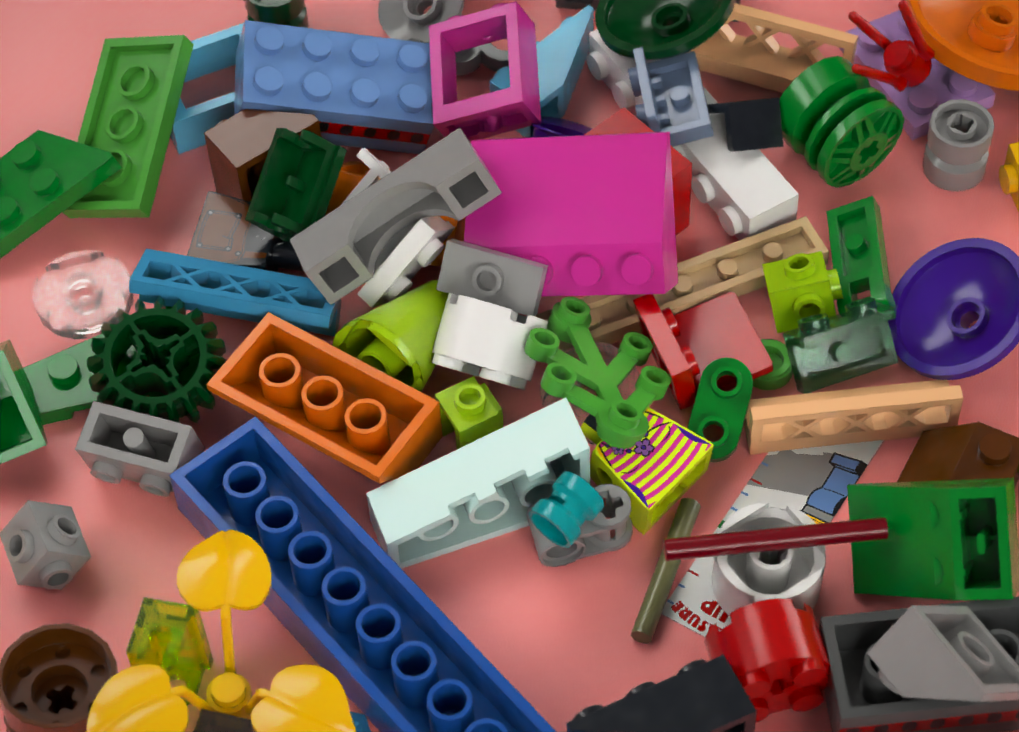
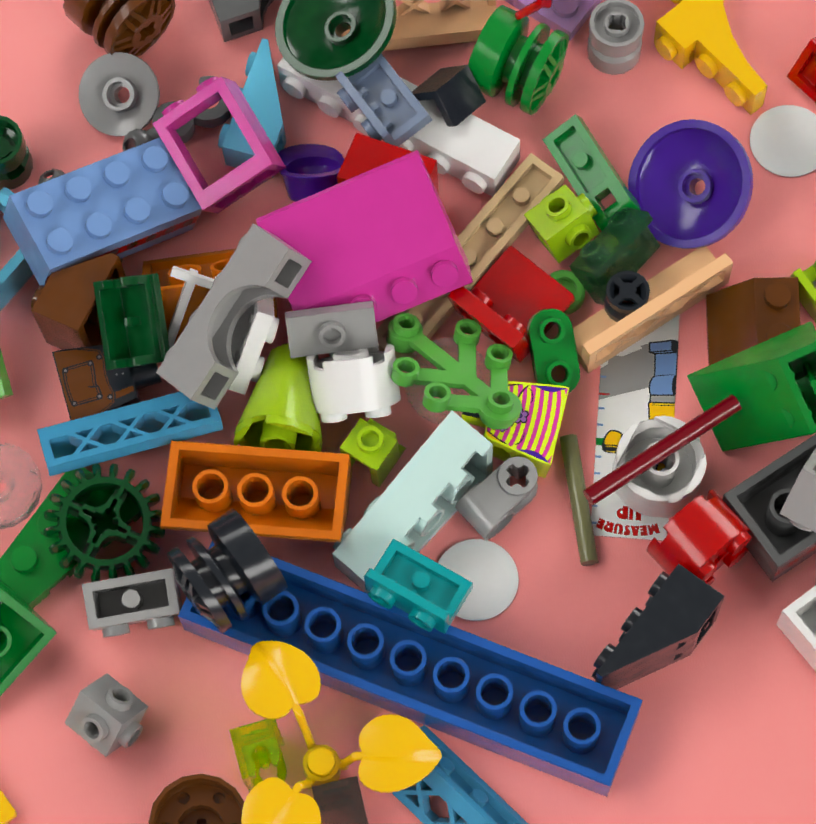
camera: 25 degrees left, 15 degrees up
(234, 439) = (227, 570): none -> black wheel
(429, 555) = (417, 586): none -> teal bracket
(509, 600) = (492, 576): none -> white sticker
(566, 509) = (495, 498): teal wheel -> none
(829, 372) = (630, 287): none -> black wheel

